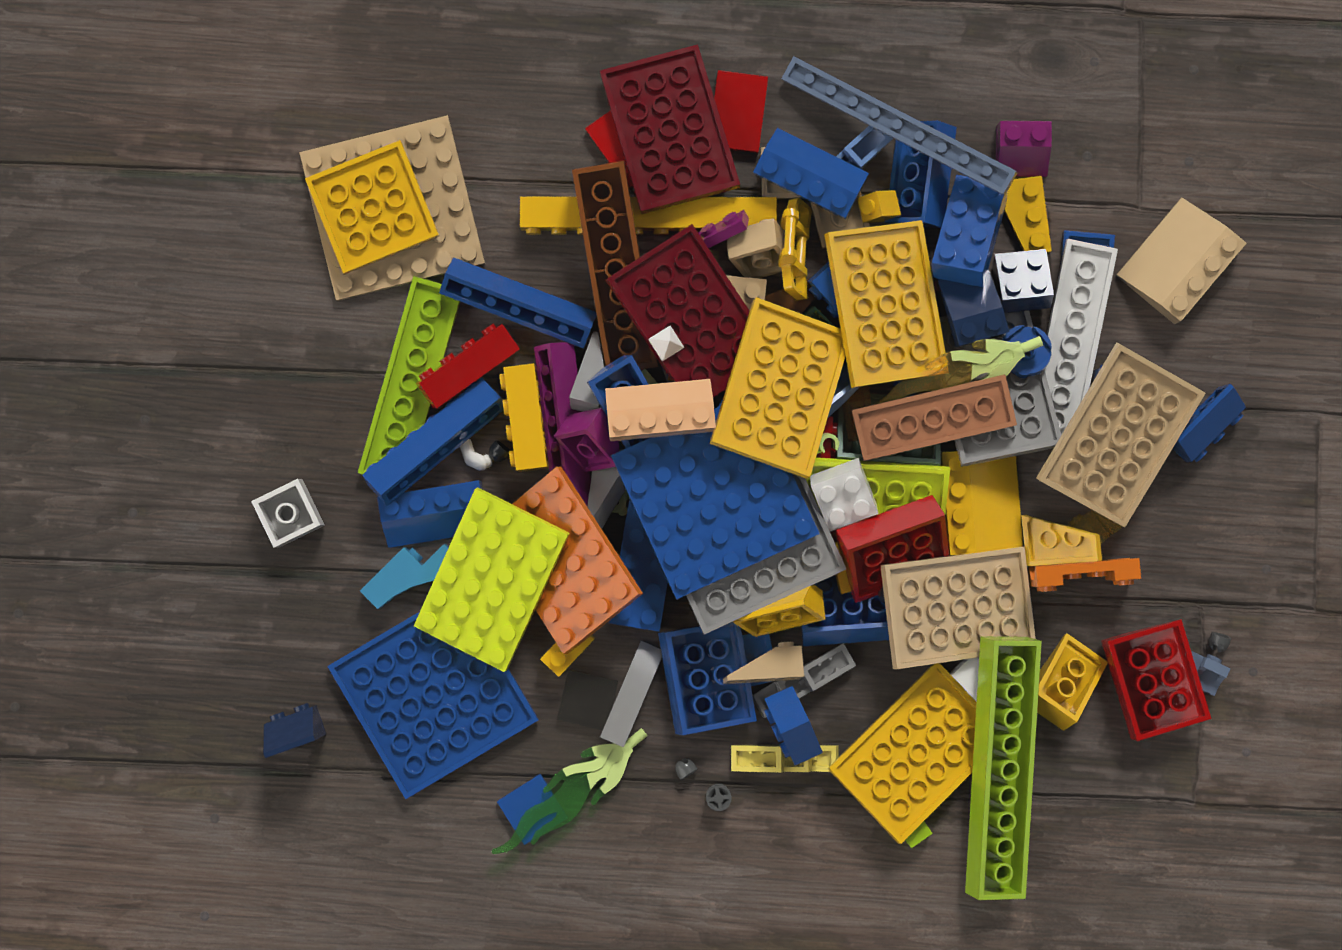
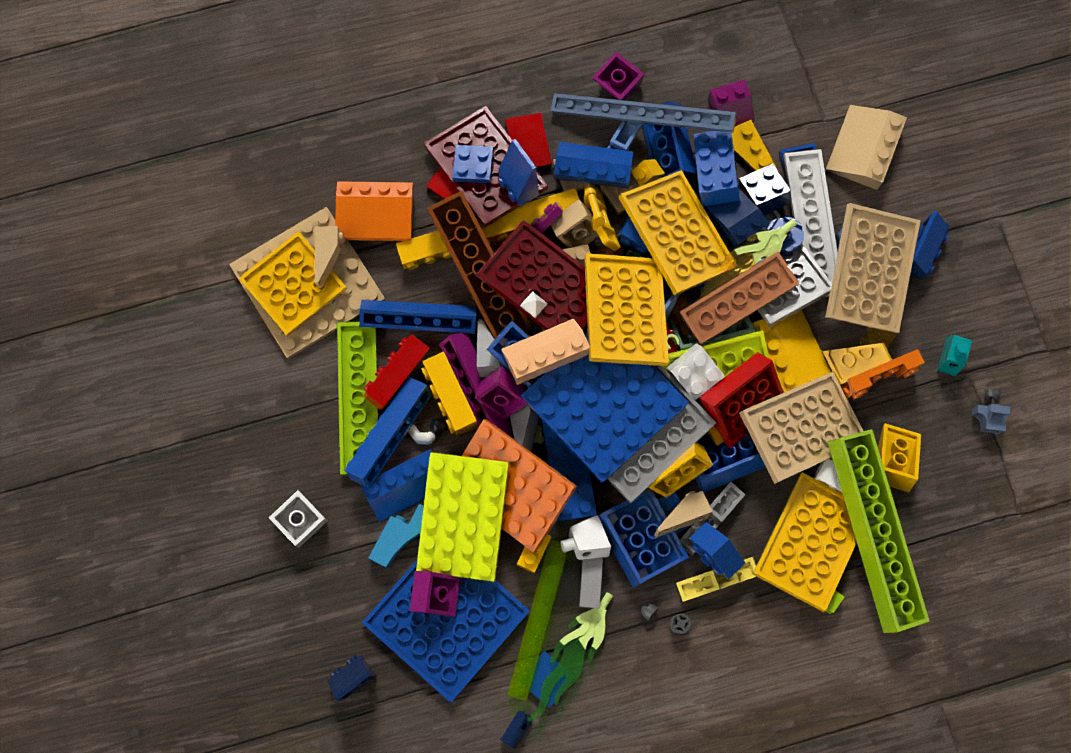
camera: 20 degrees left, 10 degrees down
(427, 181) = (327, 249): none -> tan slope
(427, 662) = (434, 593): none -> magenta slope
(474, 857) = (516, 729): none -> dark blue hinge
(505, 144) = (375, 210): none -> orange slope
(544, 734) = (537, 621): none -> clear neon green plate
(637, 658) = (587, 540): none -> white torso
(653, 123) = (472, 164): none -> plate
(703, 164) = (518, 175): none -> blue slope
(885, 64) = (619, 77): none -> magenta slope
(1156, 680) = (960, 433): red slope -> none
(1188, 576) = (954, 351): none -> teal torso

